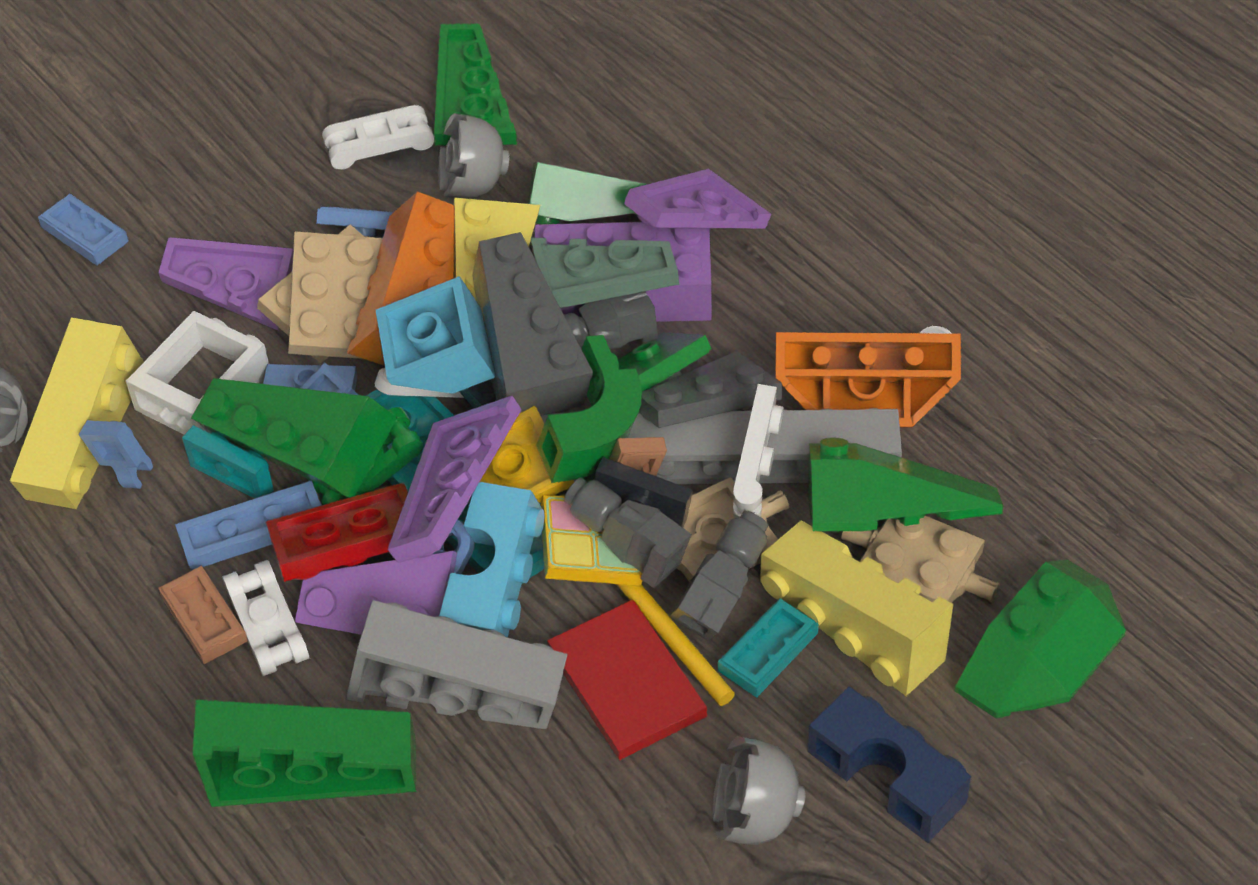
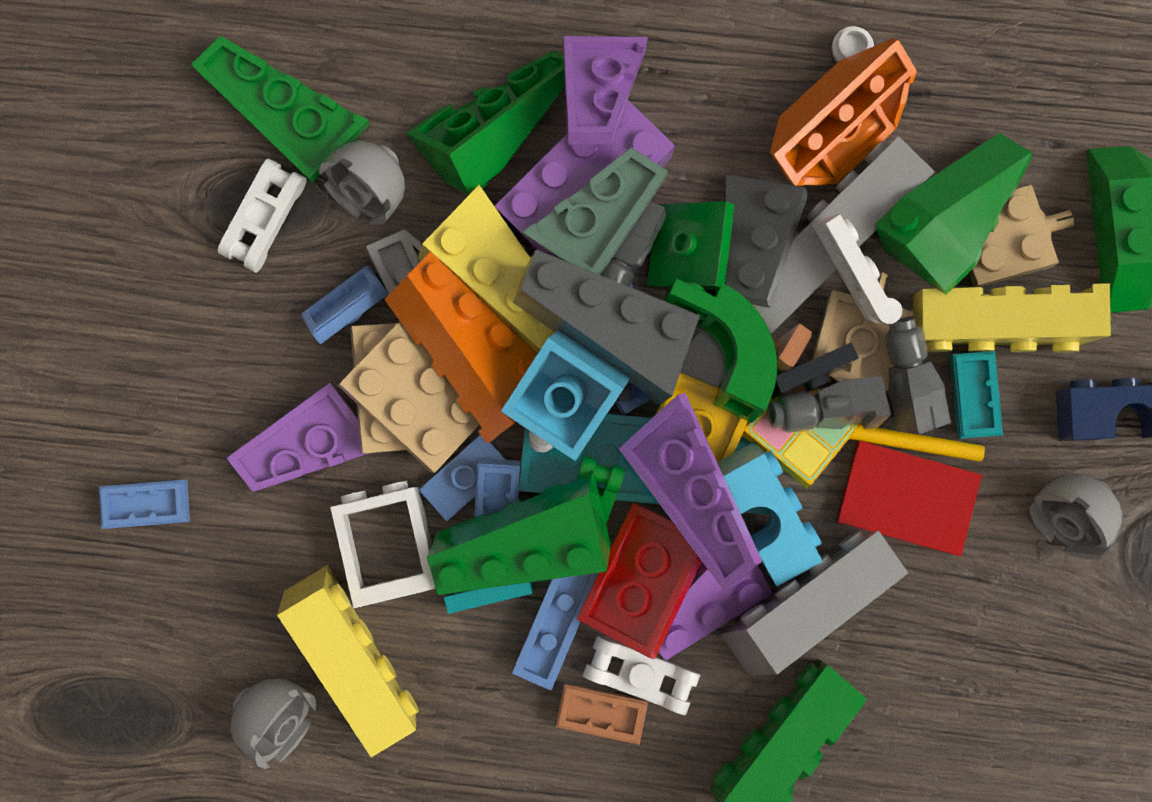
camera: 45 degrees left, 35 degrees up
(116, 446) = (413, 664): medium blue plate -> none

